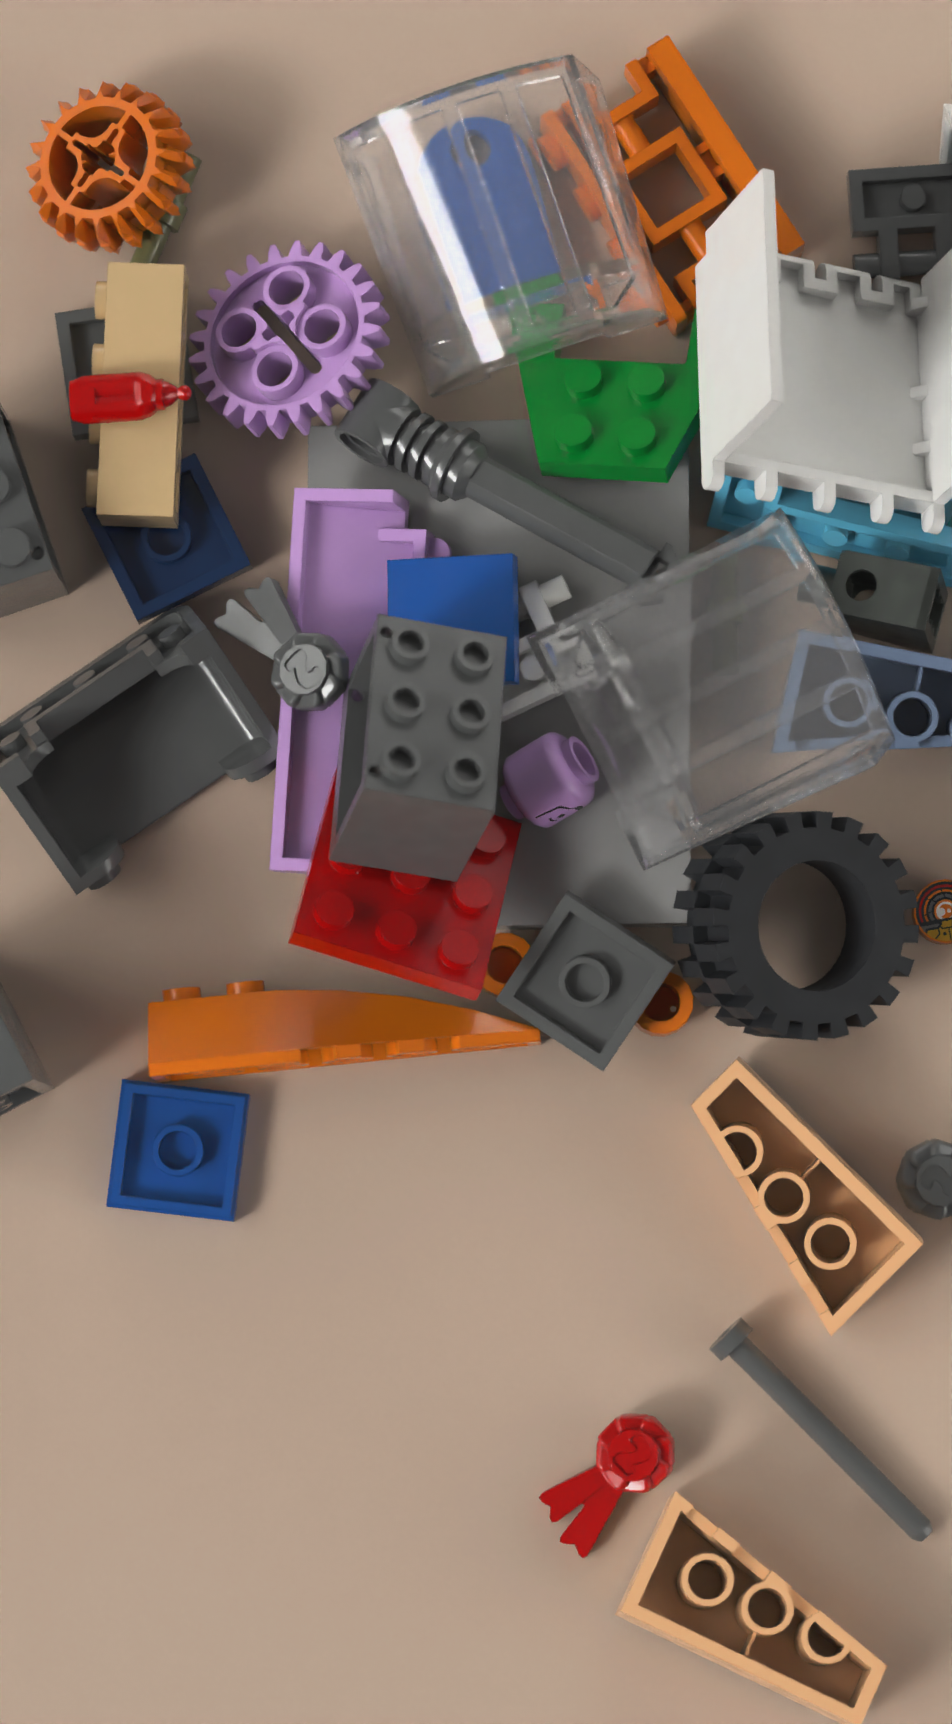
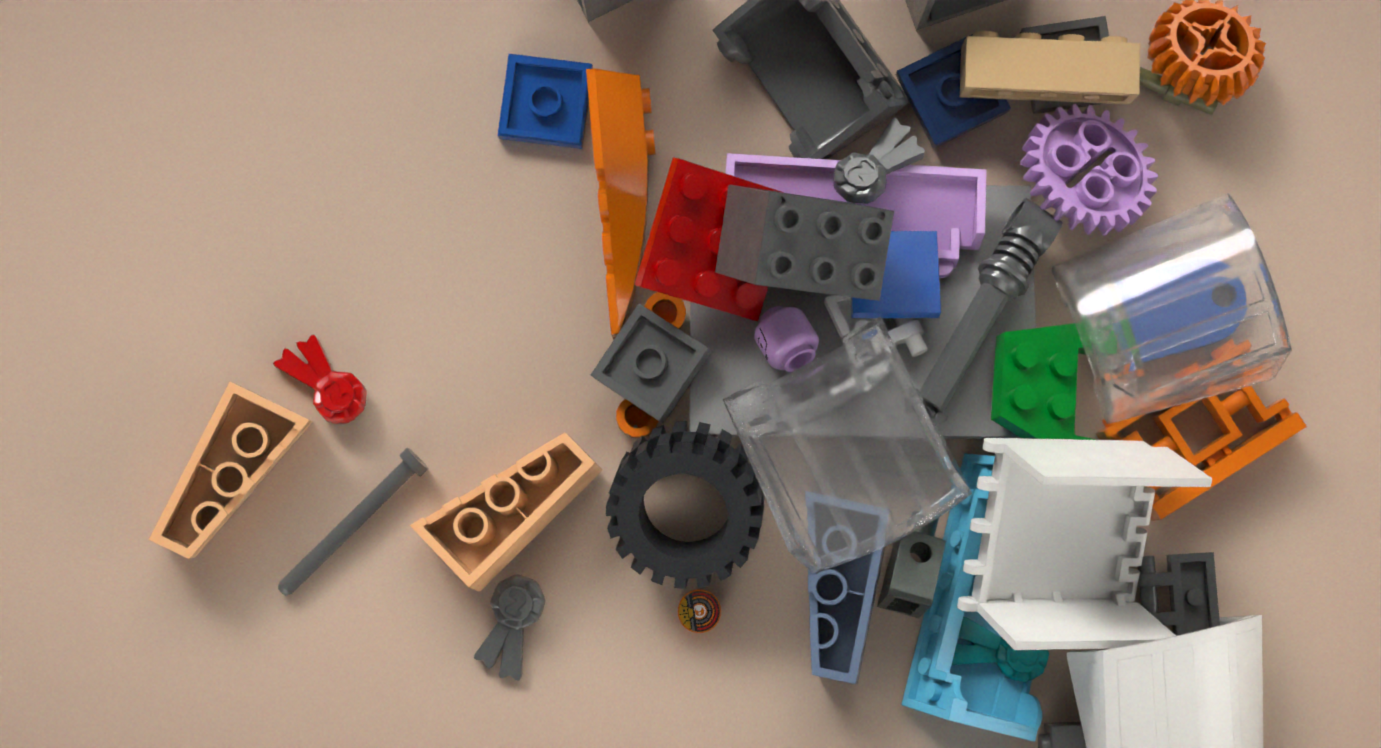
camera: 90 degrees right, 0 degrees up
(121, 397) = (1046, 50): red piece -> none

